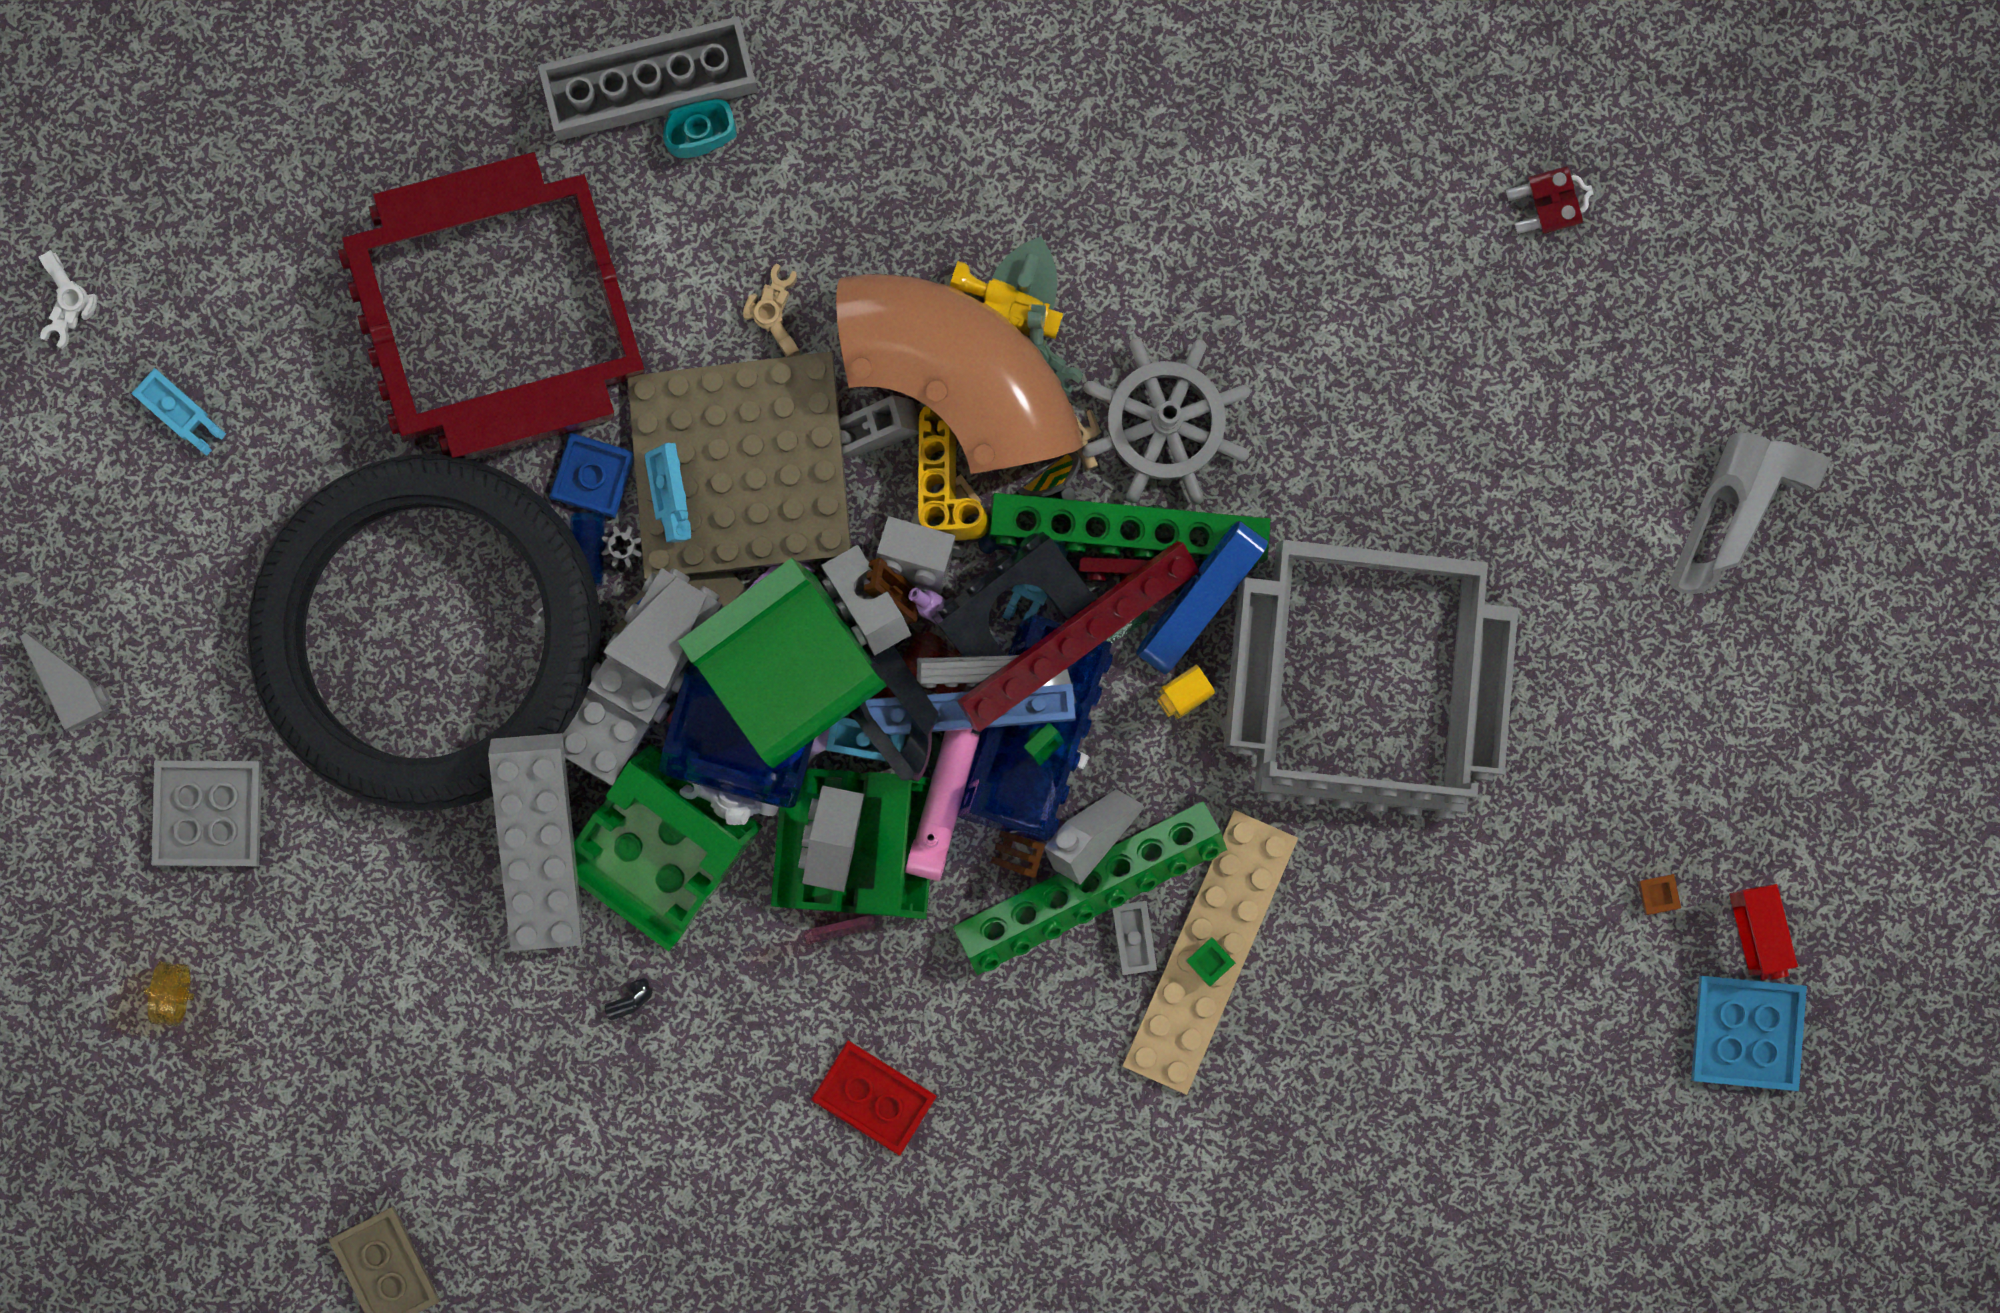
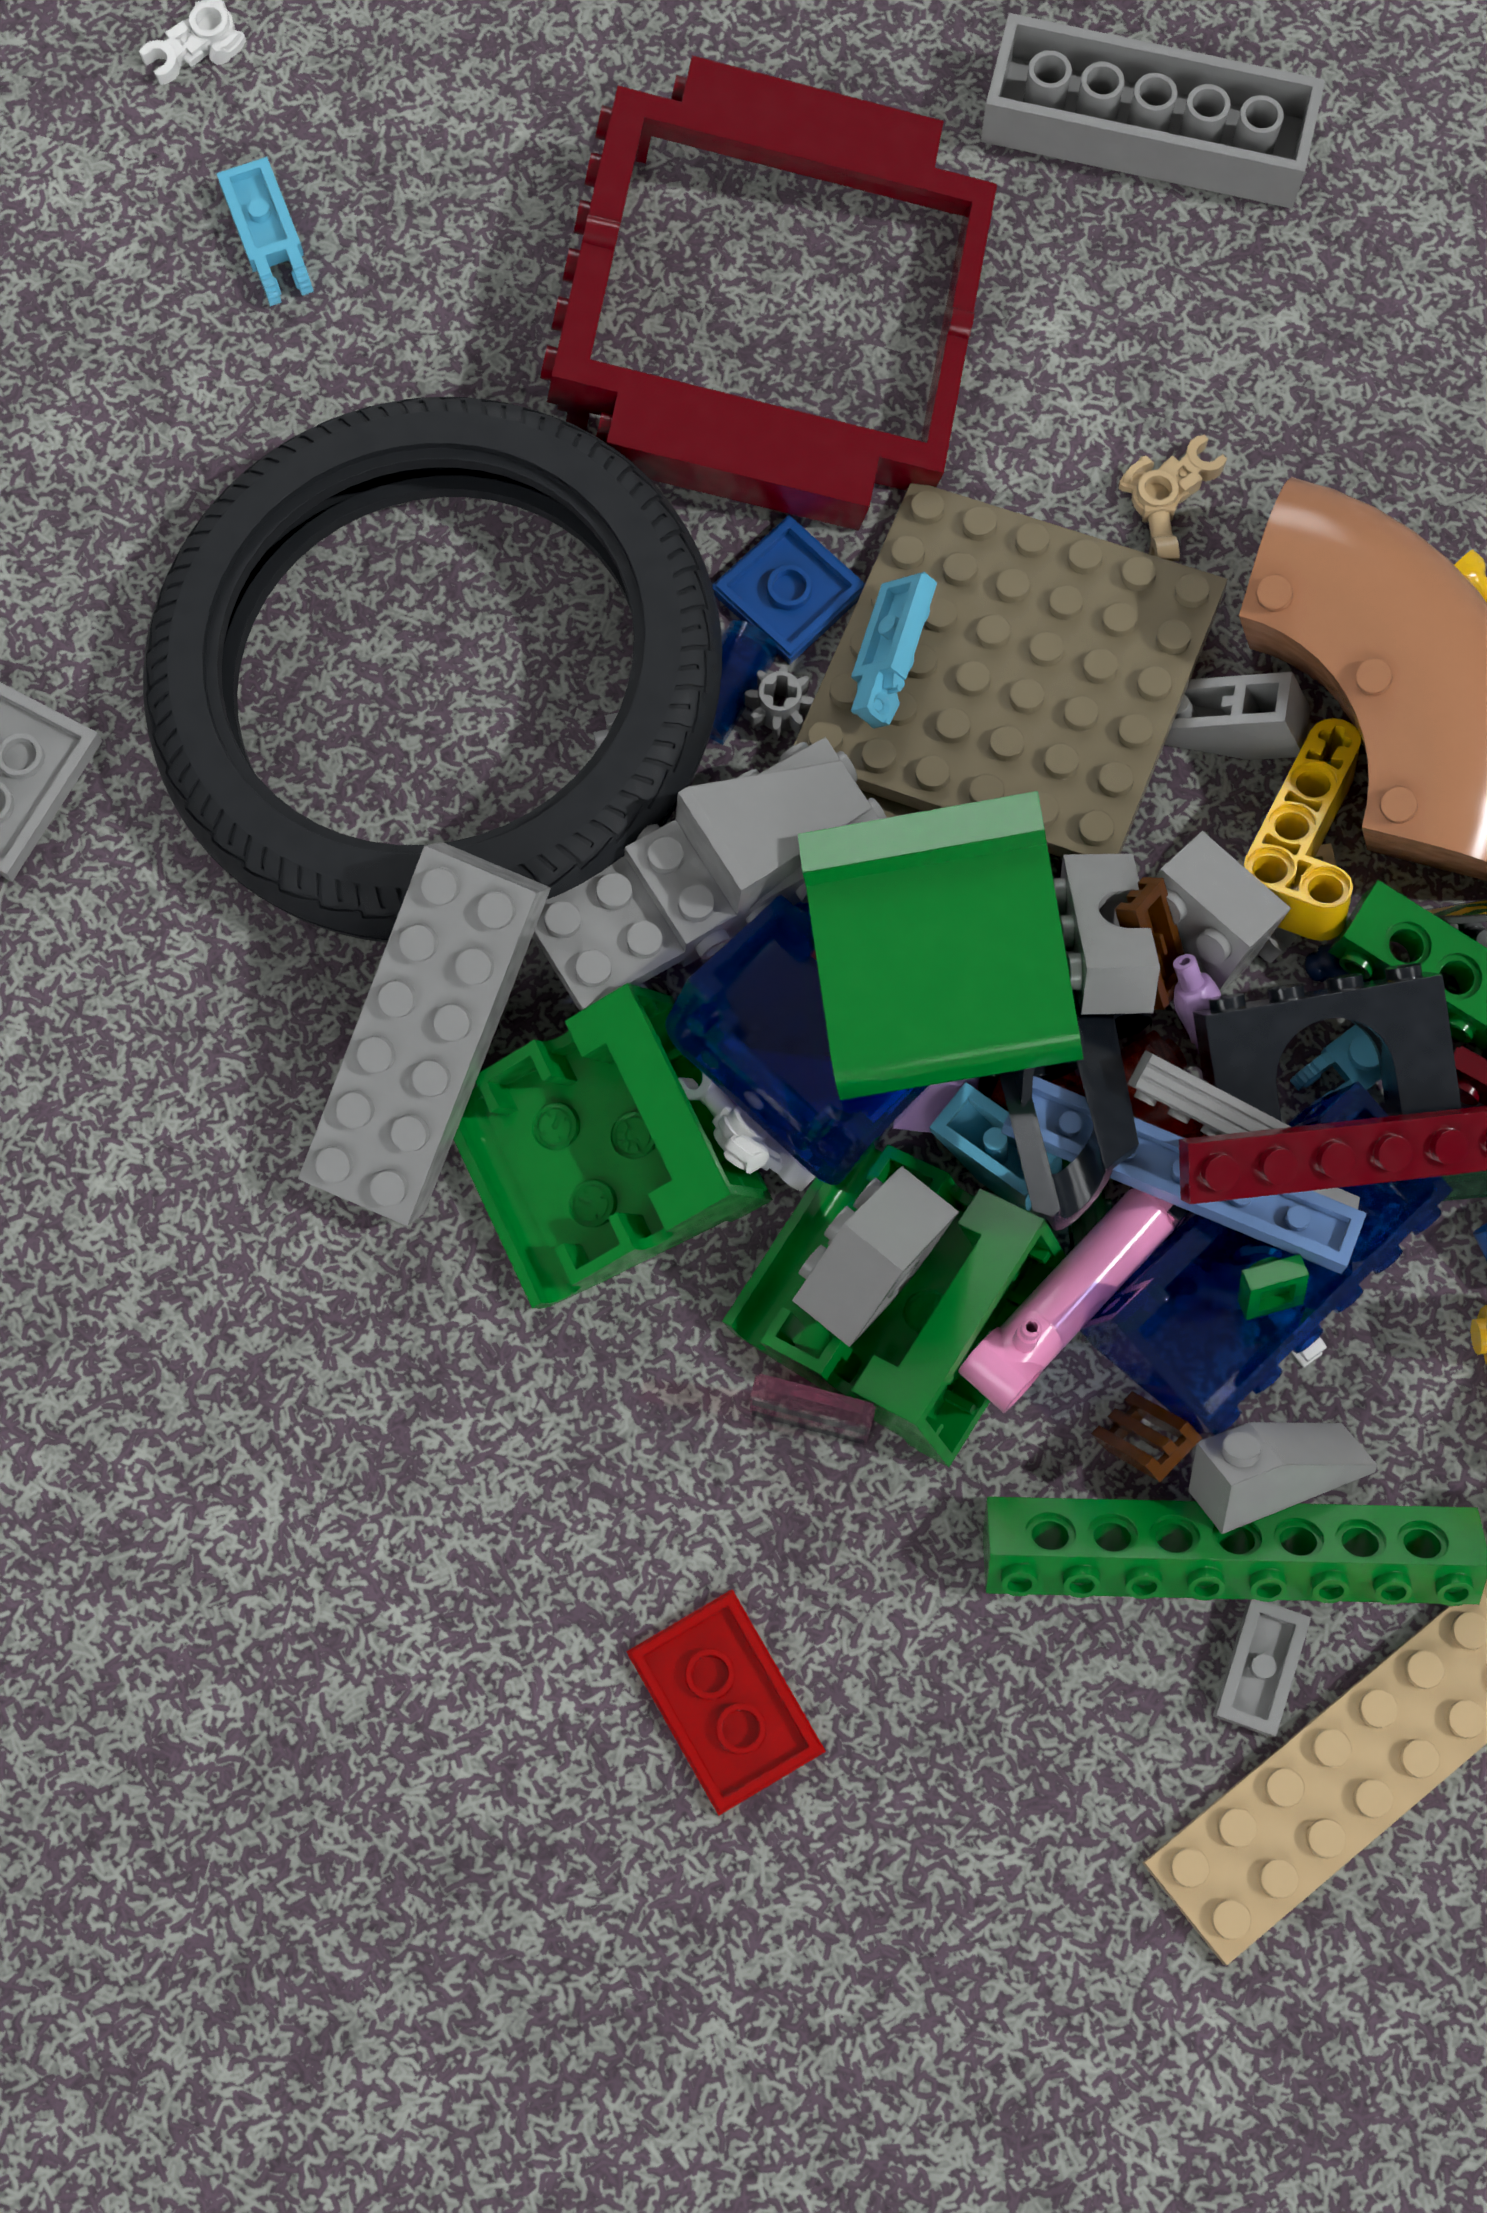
camera: 30 degrees right, 10 degrees down
(631, 1003) = (431, 1357): black arm -> none
(699, 128) = (1188, 207): teal piece -> none
(1210, 961) = (1372, 1767): green plate -> none

